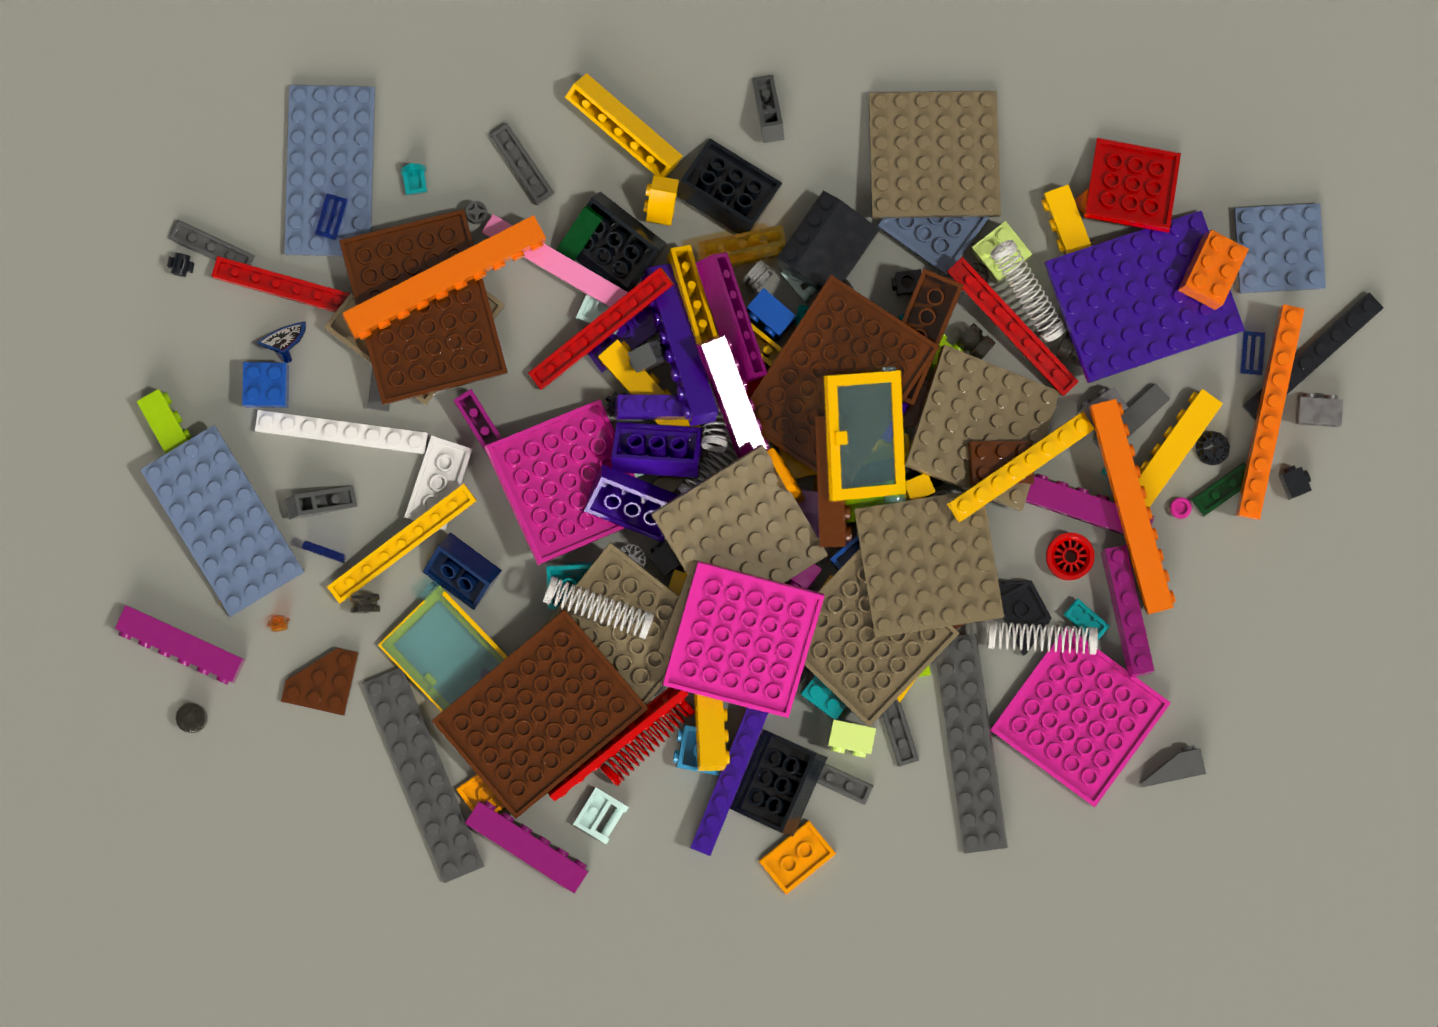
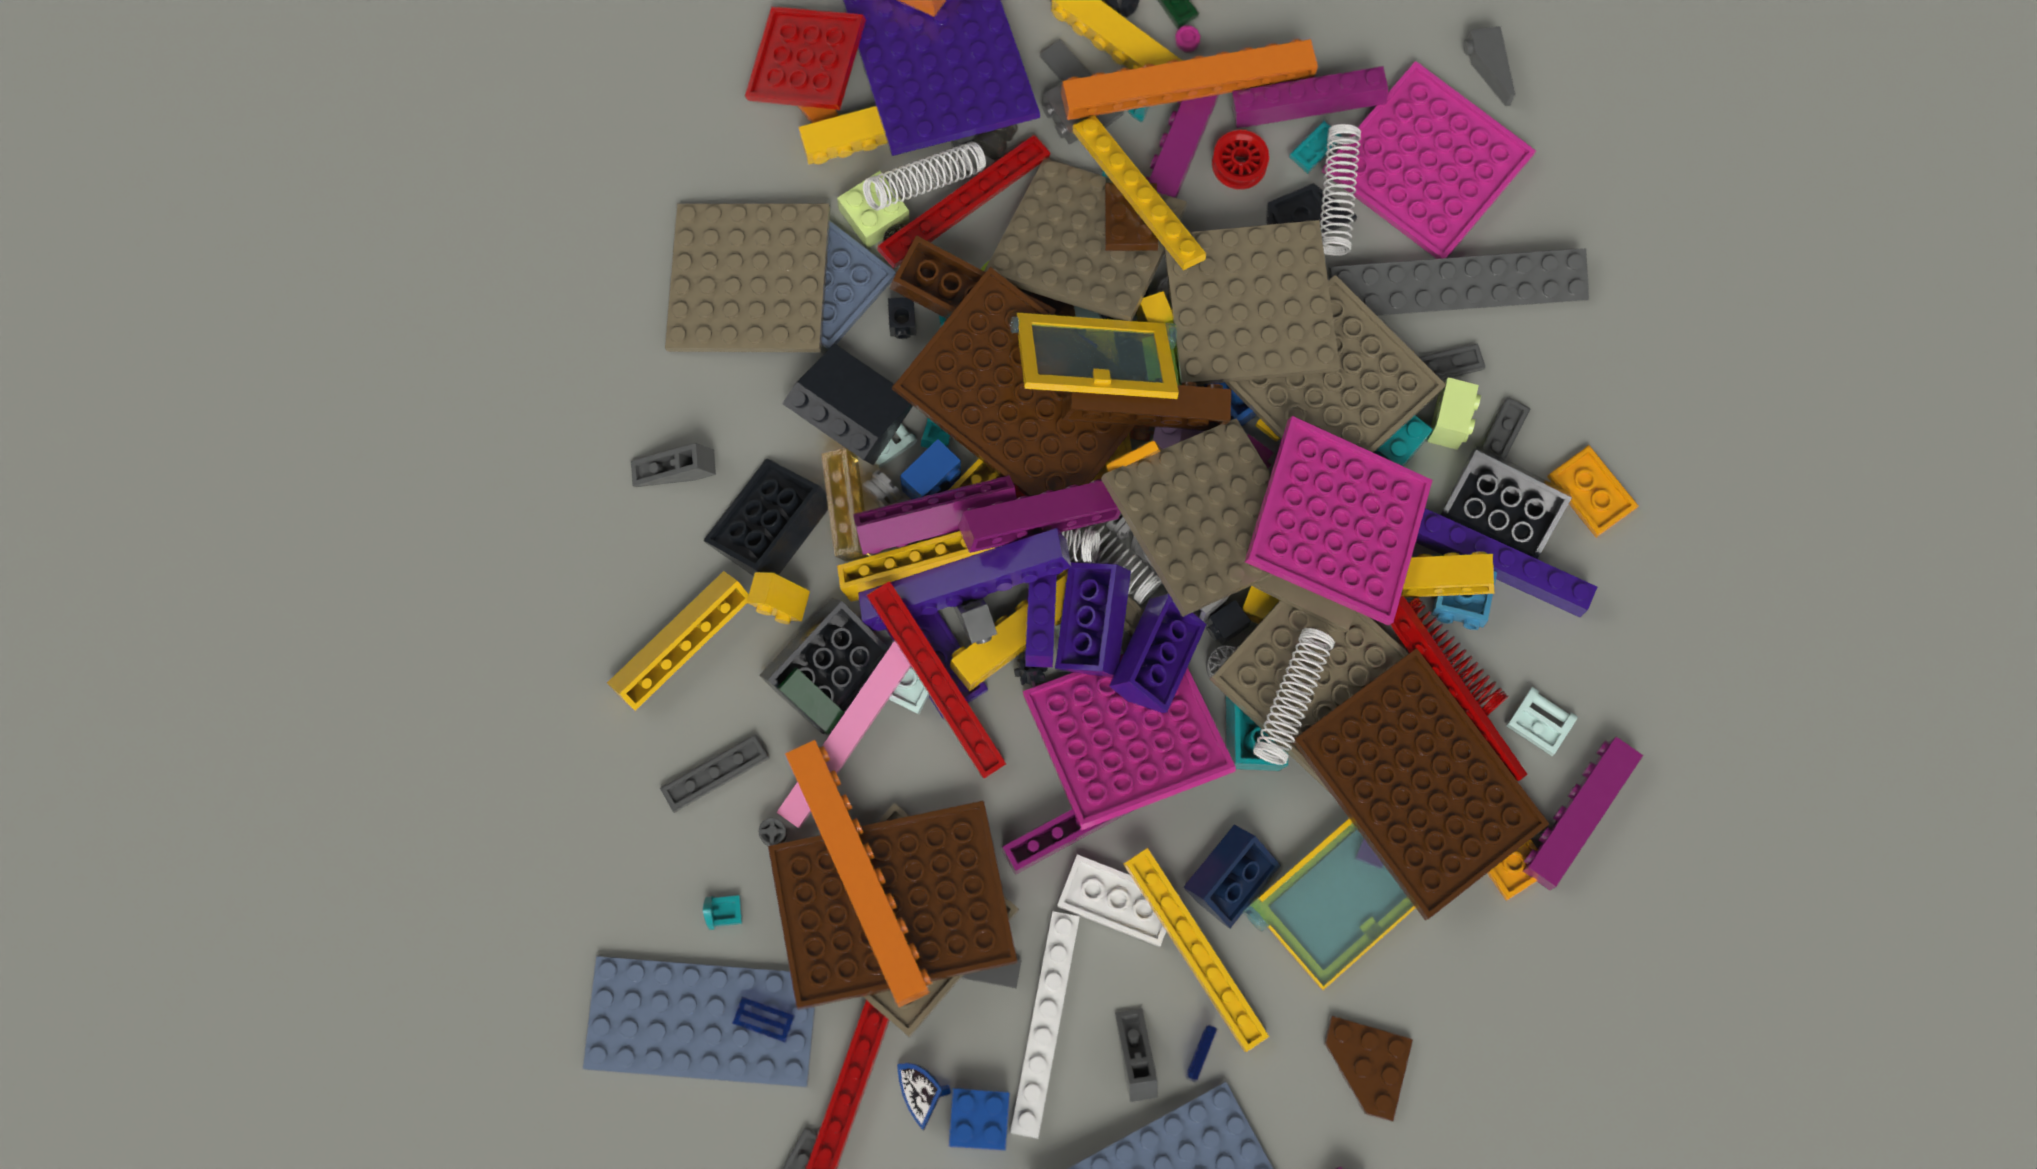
camera: 90 degrees left, 10 degrees down
(278, 623) = (1292, 1118): clear orange plate -> none
(364, 606) = (1271, 1002): clear smoke wheel -> none
(423, 775) = (1488, 941): dark grey plate -> none
(975, 342) = (981, 245): clear smoke wheel -> none

